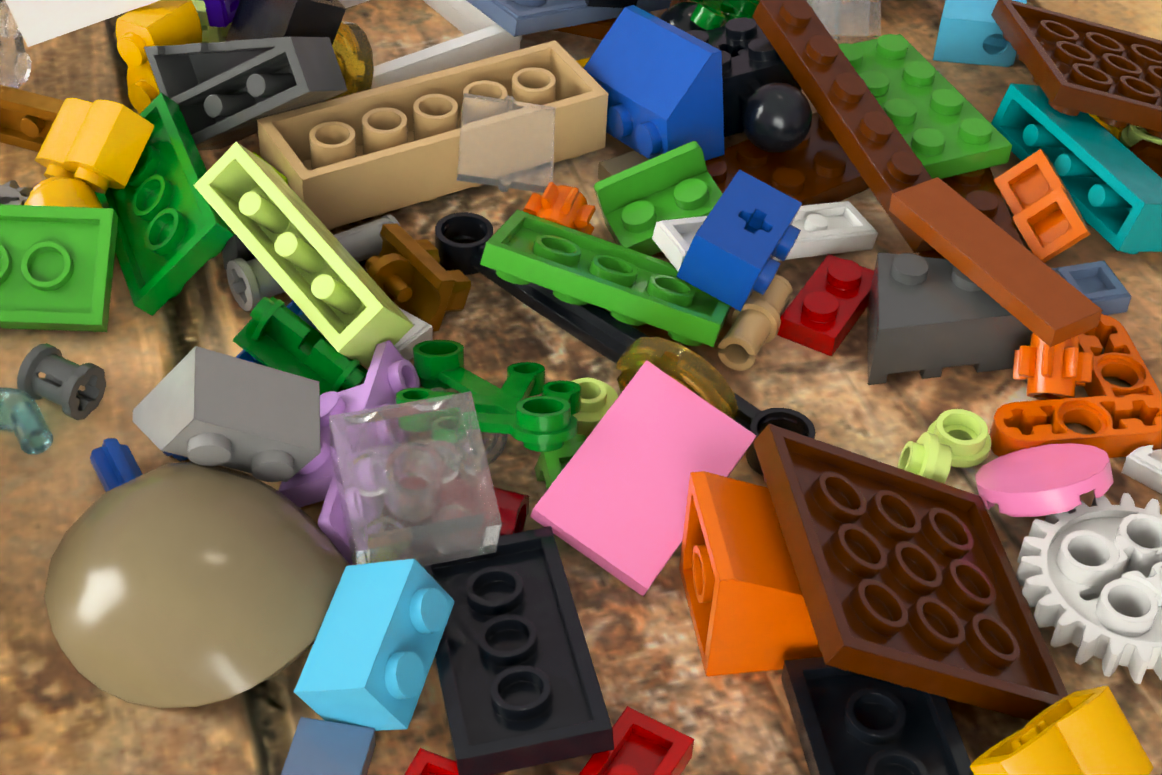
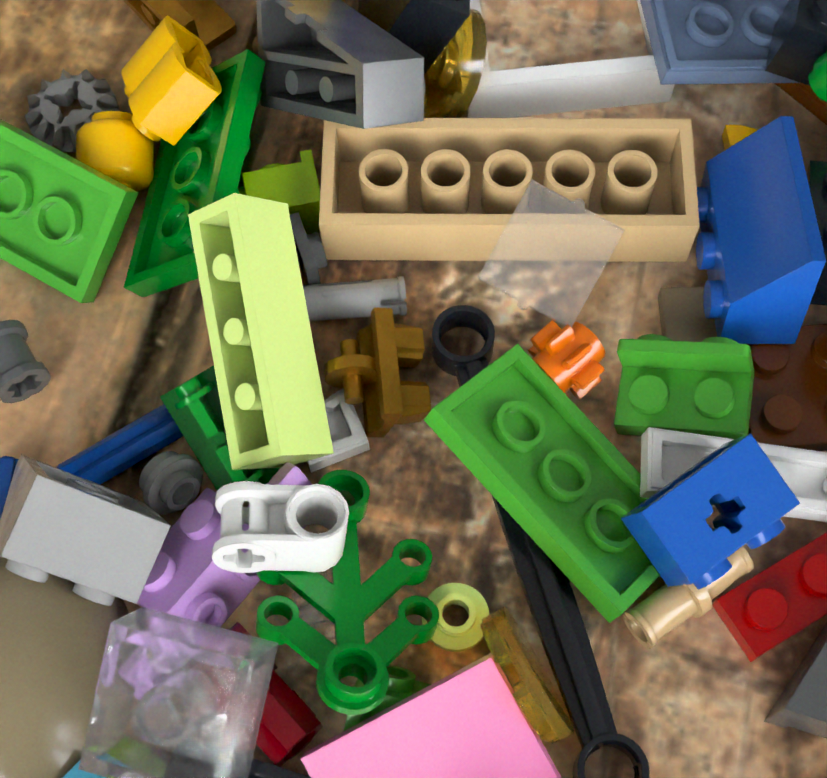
camera: 35 degrees right, 25 degrees up
(412, 357) = (275, 527): none -> white piece

